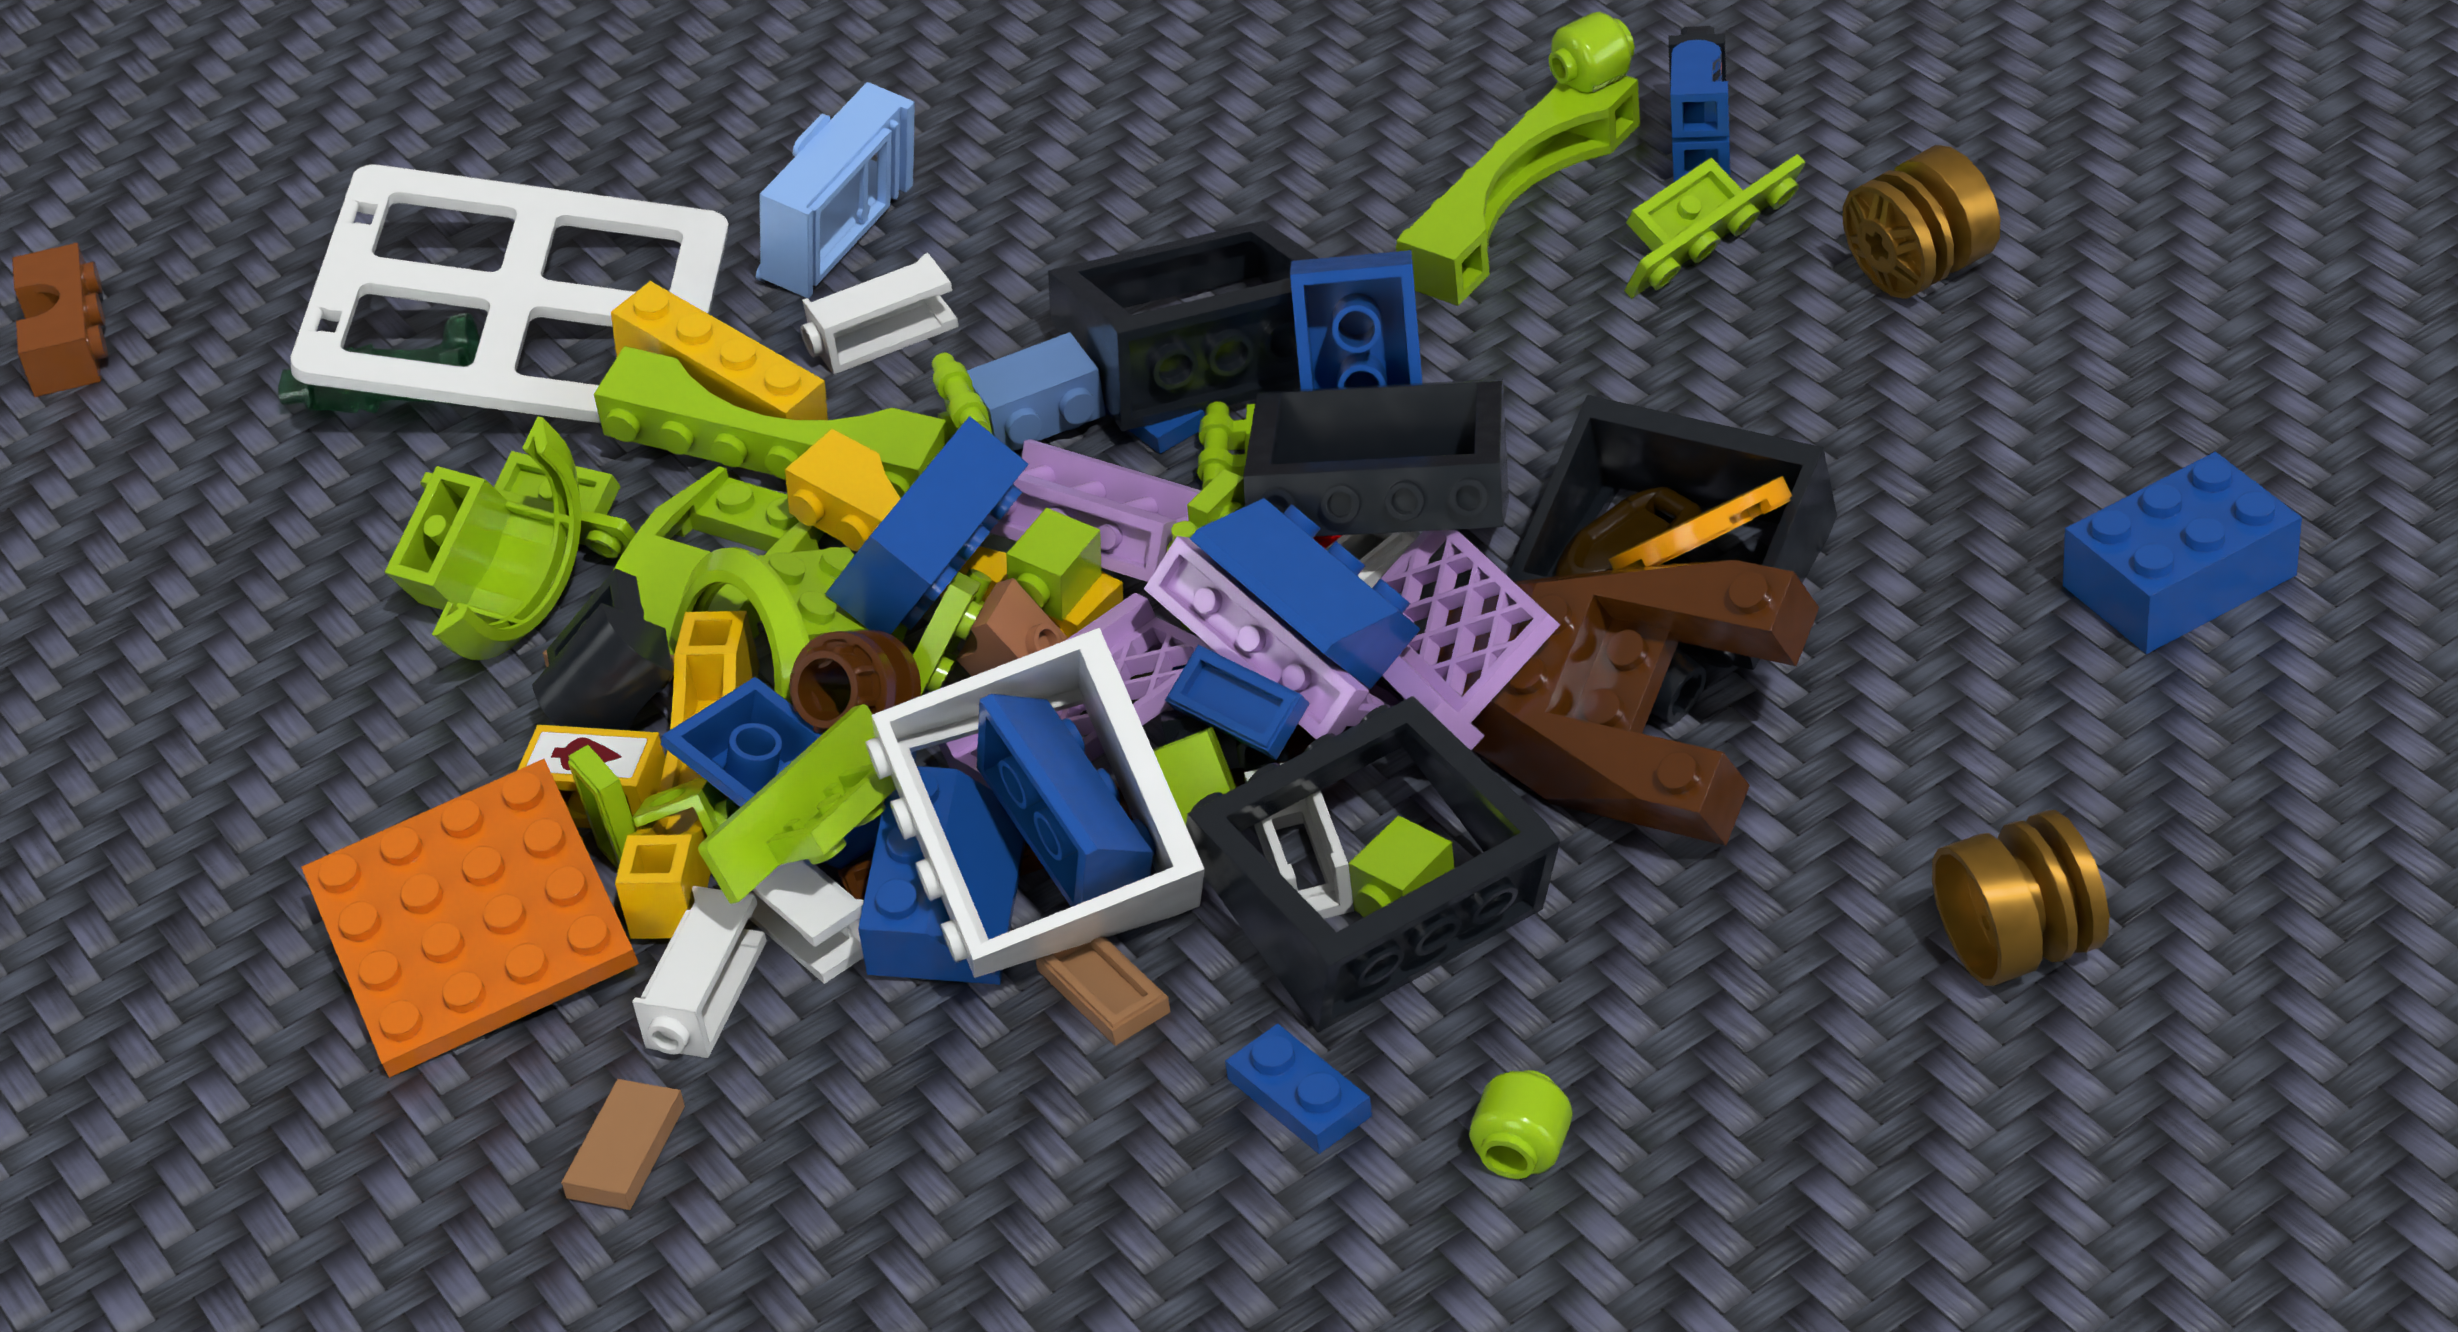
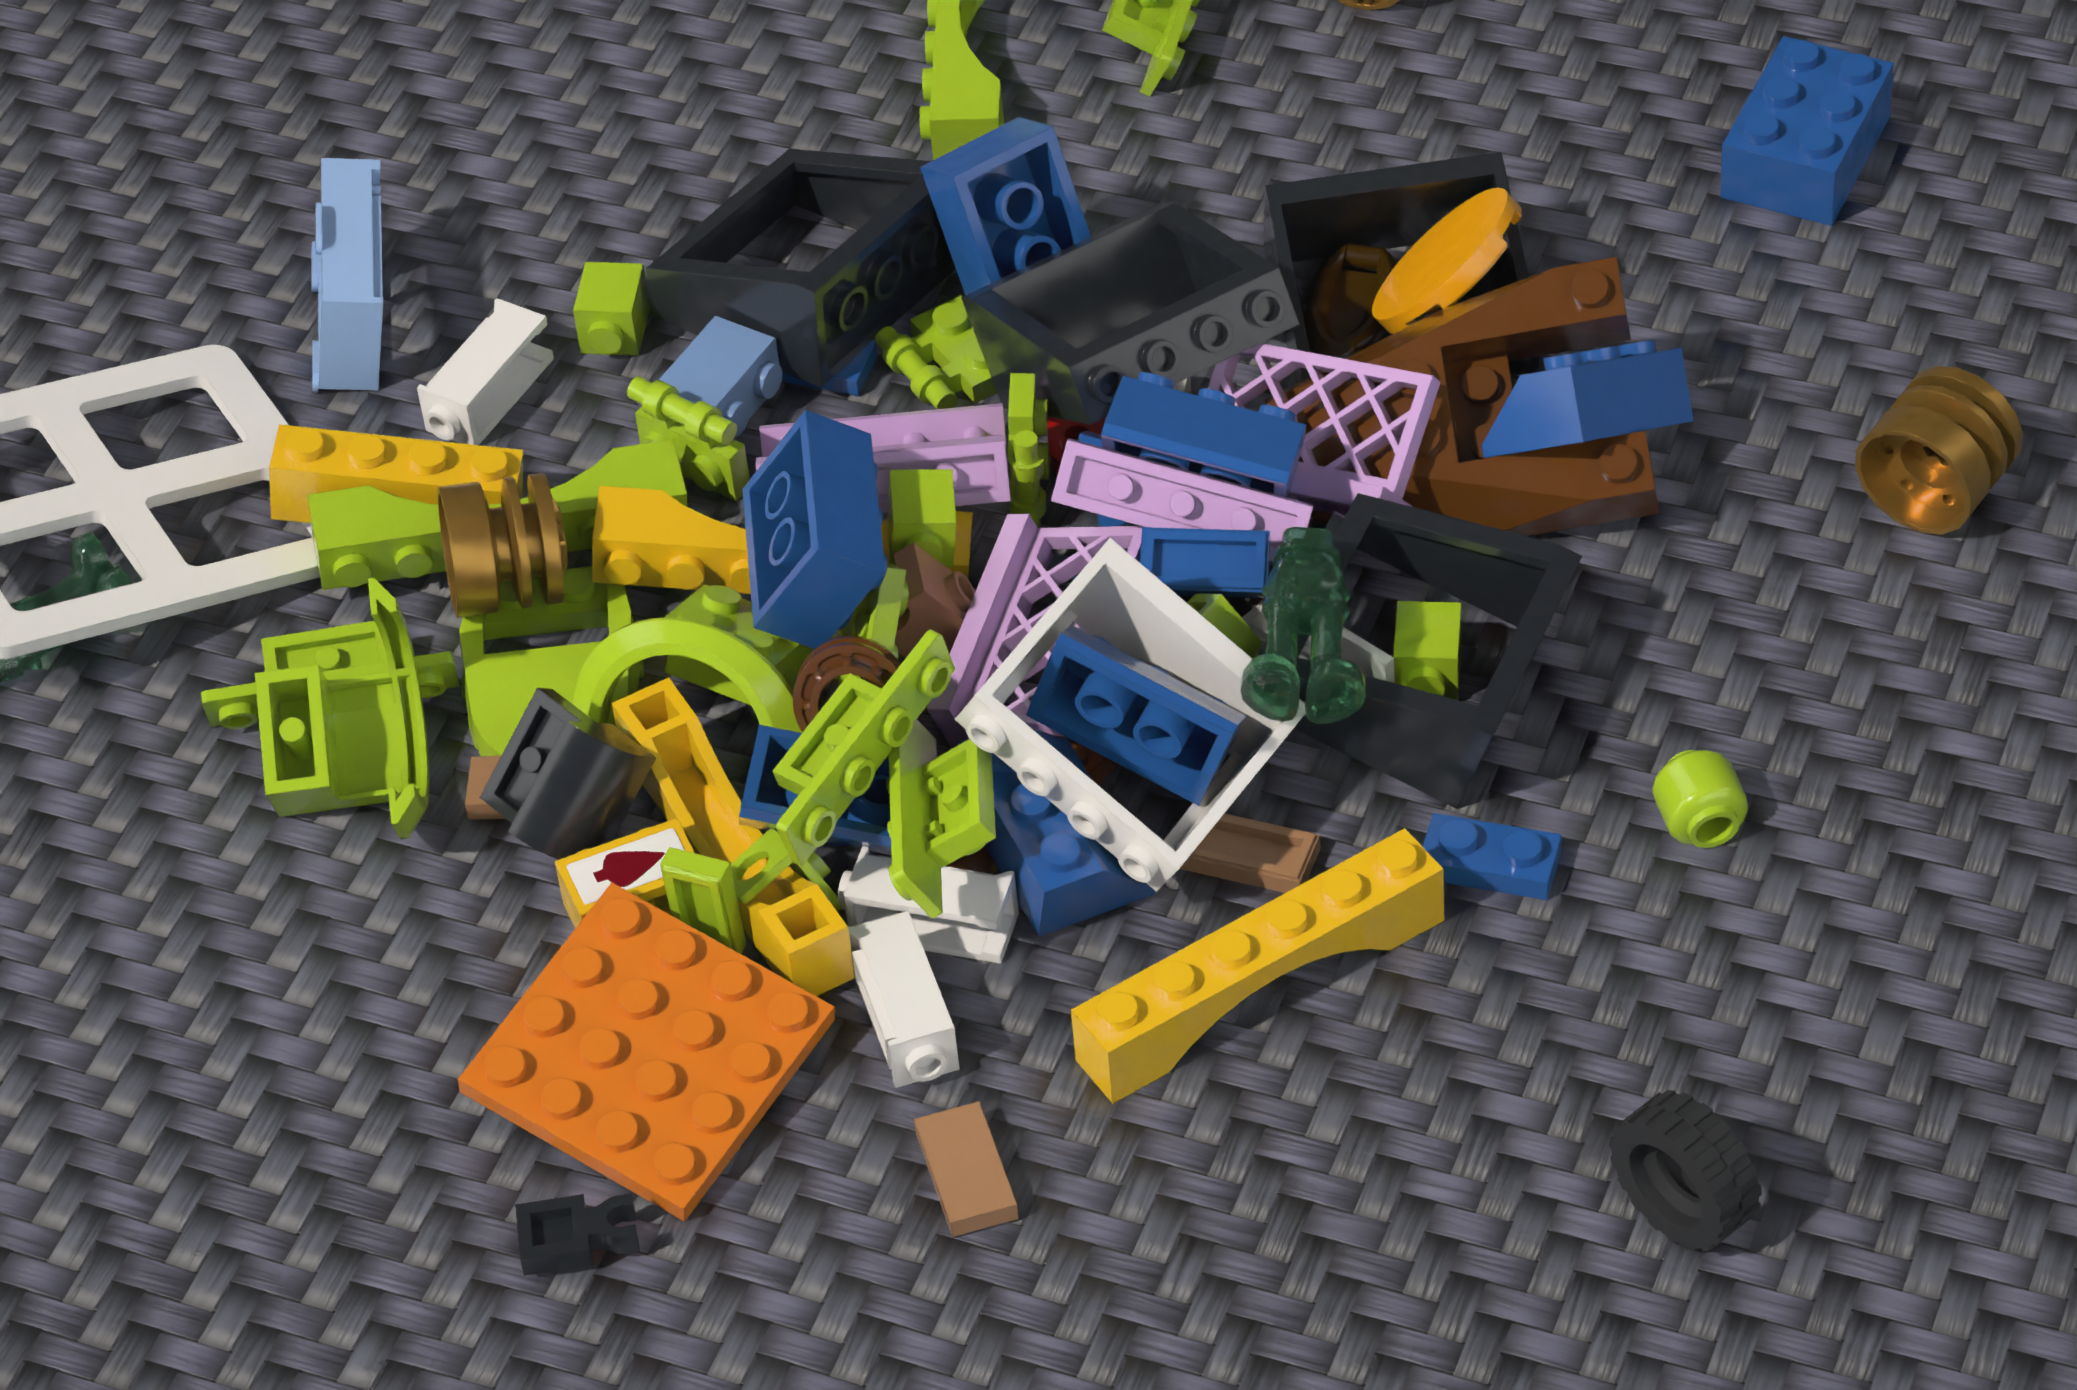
camera: 35 degrees left, 5 degrees up
(282, 1034) = (564, 1232): none -> black plate
(715, 444) = (501, 544): none -> pearl gold wheel
(779, 722) = (851, 740): none -> lime bracket
(1016, 300) = (611, 308): none -> lime brick
(1132, 1072) = (1158, 1014): none -> yellow arch
(1258, 764) = (1307, 599): none -> clear green piece
(1708, 703) = (1592, 398): none -> blue slope

